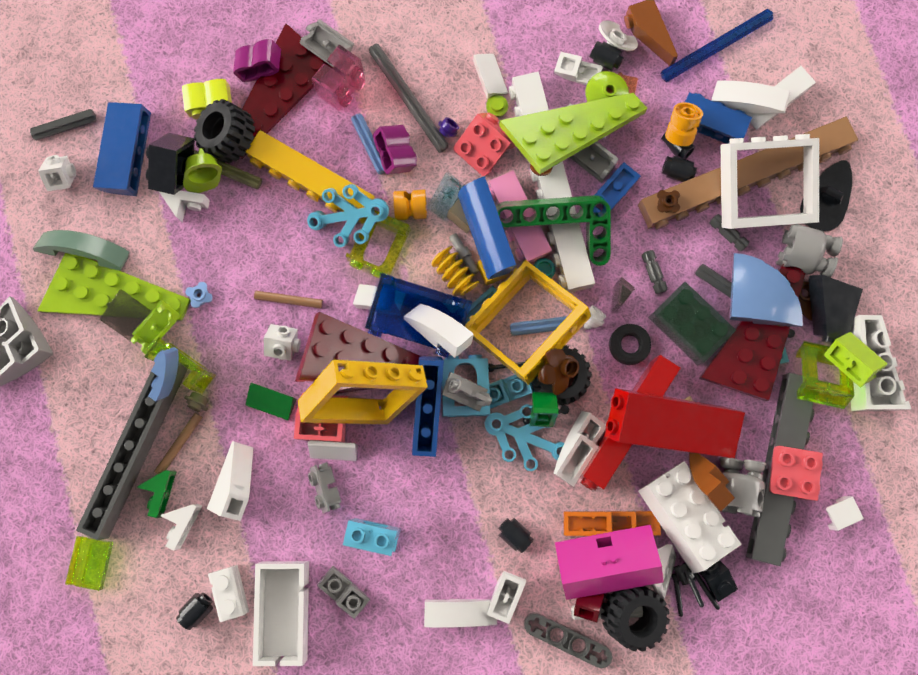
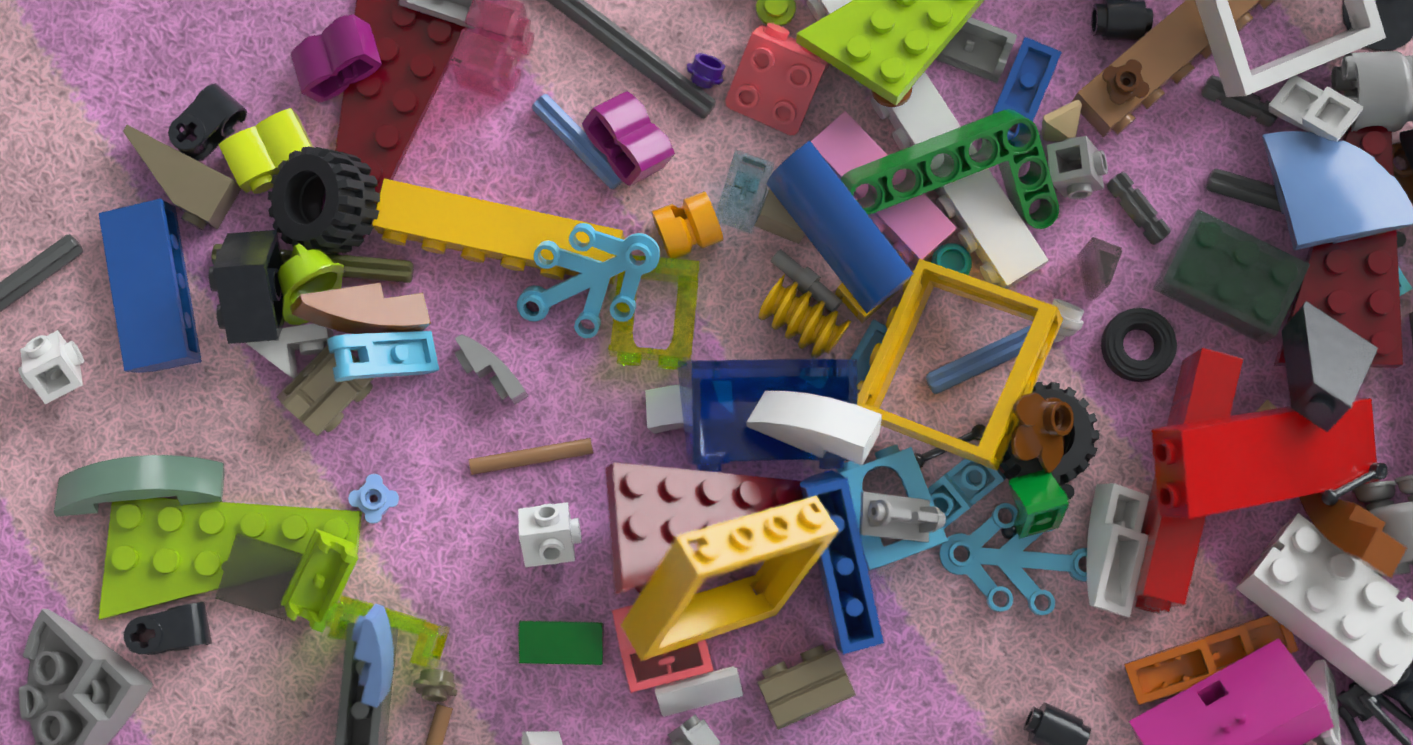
camera: 20 degrees left, 0 degrees up
(71, 328) = (174, 630): none -> black piece
(159, 101) = (190, 185): none -> dark tan slope
(181, 71) = (208, 119): none -> black piece
(194, 229) = (318, 398): none -> dark tan brick
(225, 195) = (363, 310): none -> slope
(227, 220) = (383, 355): none -> medium azure plate
(279, 242) = (481, 360): none -> light grey slope
(388, 467) = (805, 687): none -> dark tan brick
(627, 238) = (1076, 167): none -> light grey brick
(628, 213) = (1062, 122): none -> tan slope
(723, 385) = (1323, 365): none -> slope
(735, 453) = (1377, 471): none -> black hinge
(766, 248) = (1315, 110): none -> white slope

